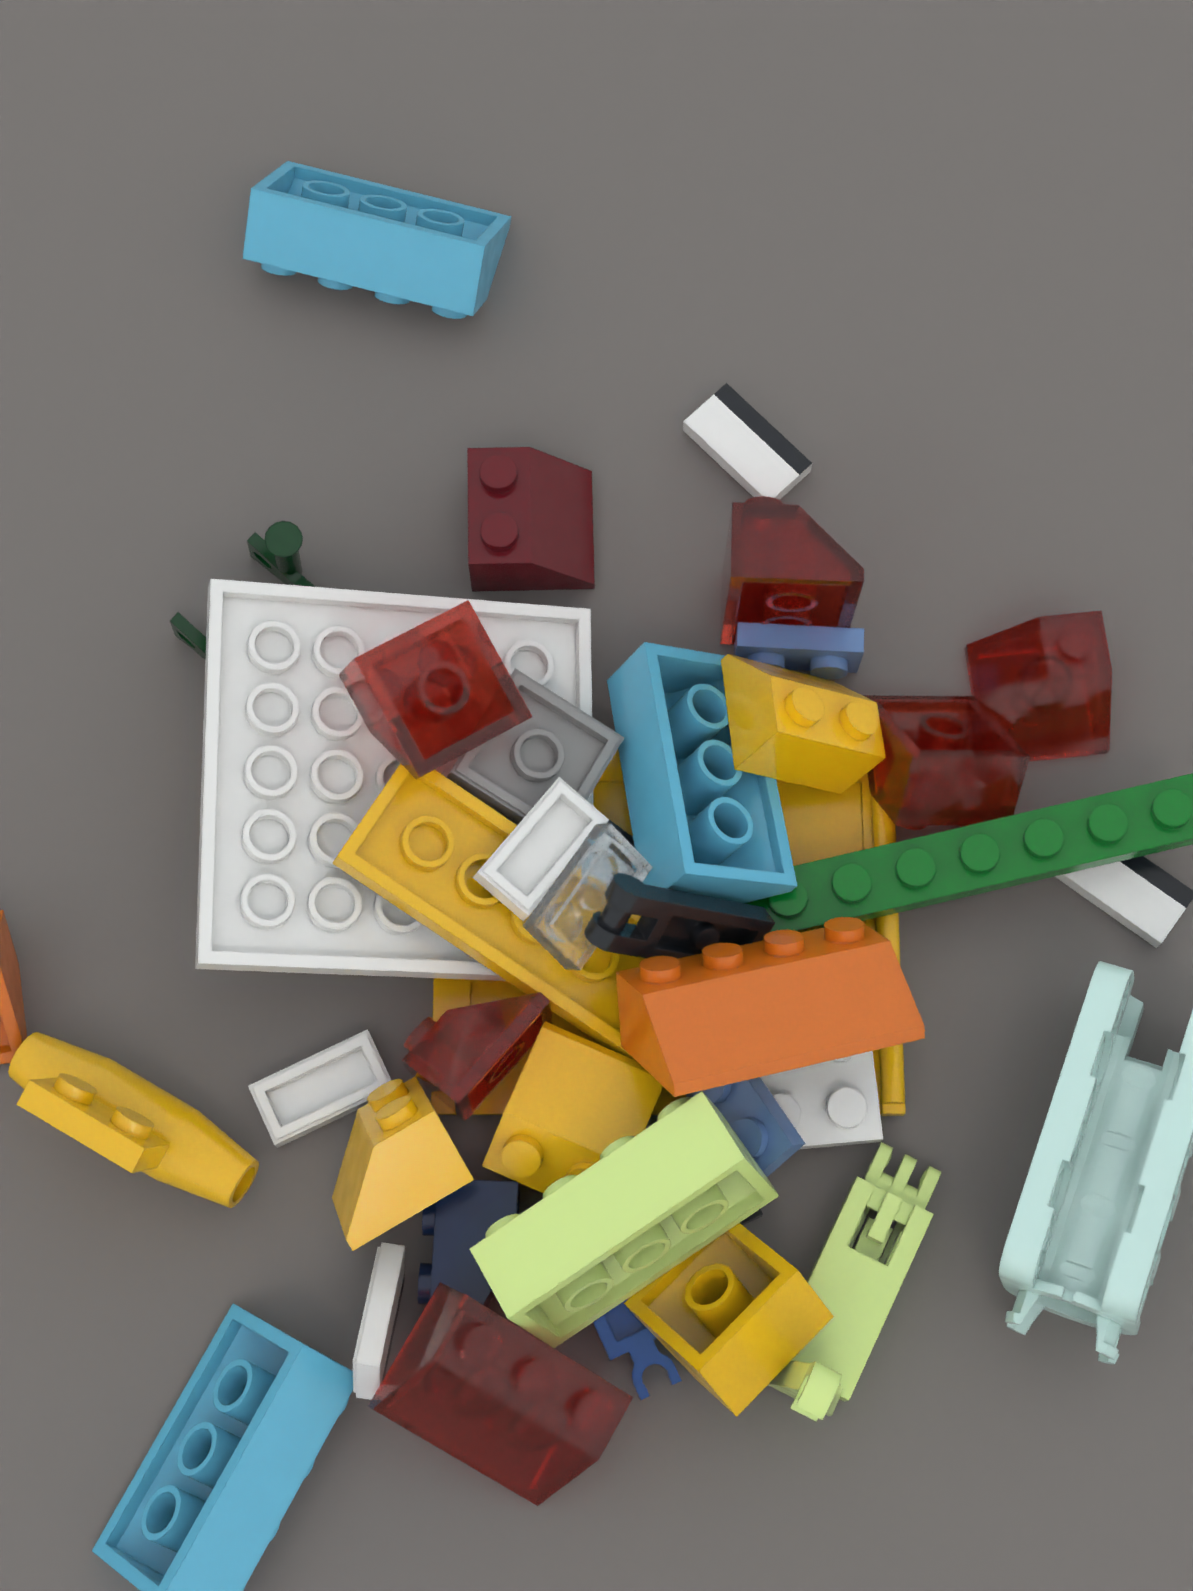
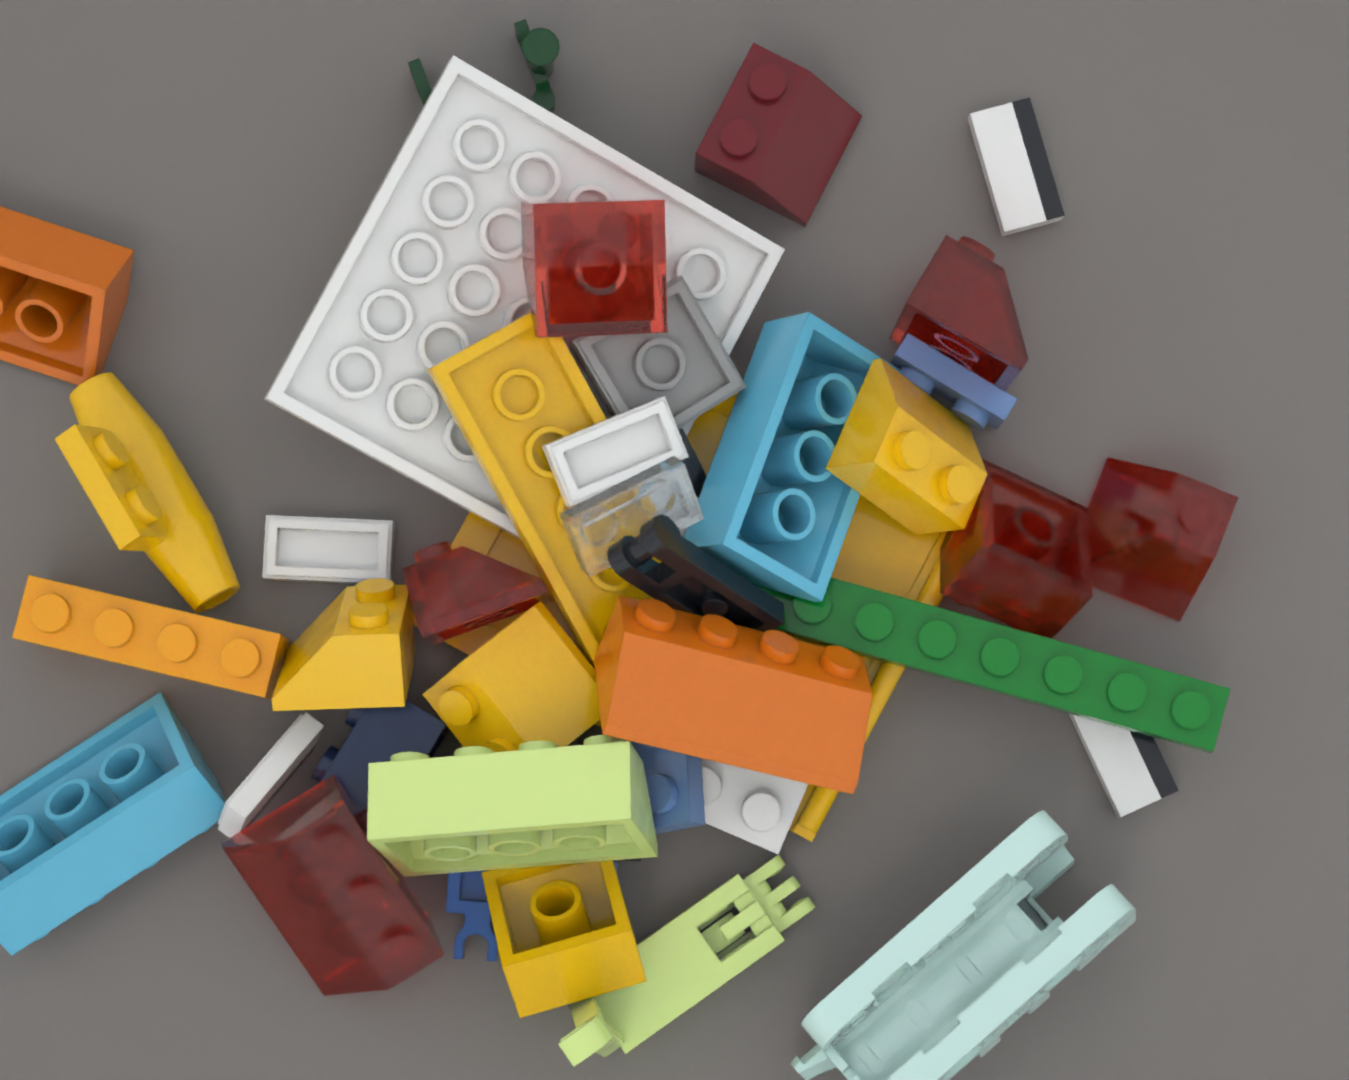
camera: 25 degrees right, 10 degrees up
(198, 1254) = (150, 637): none -> light orange brick

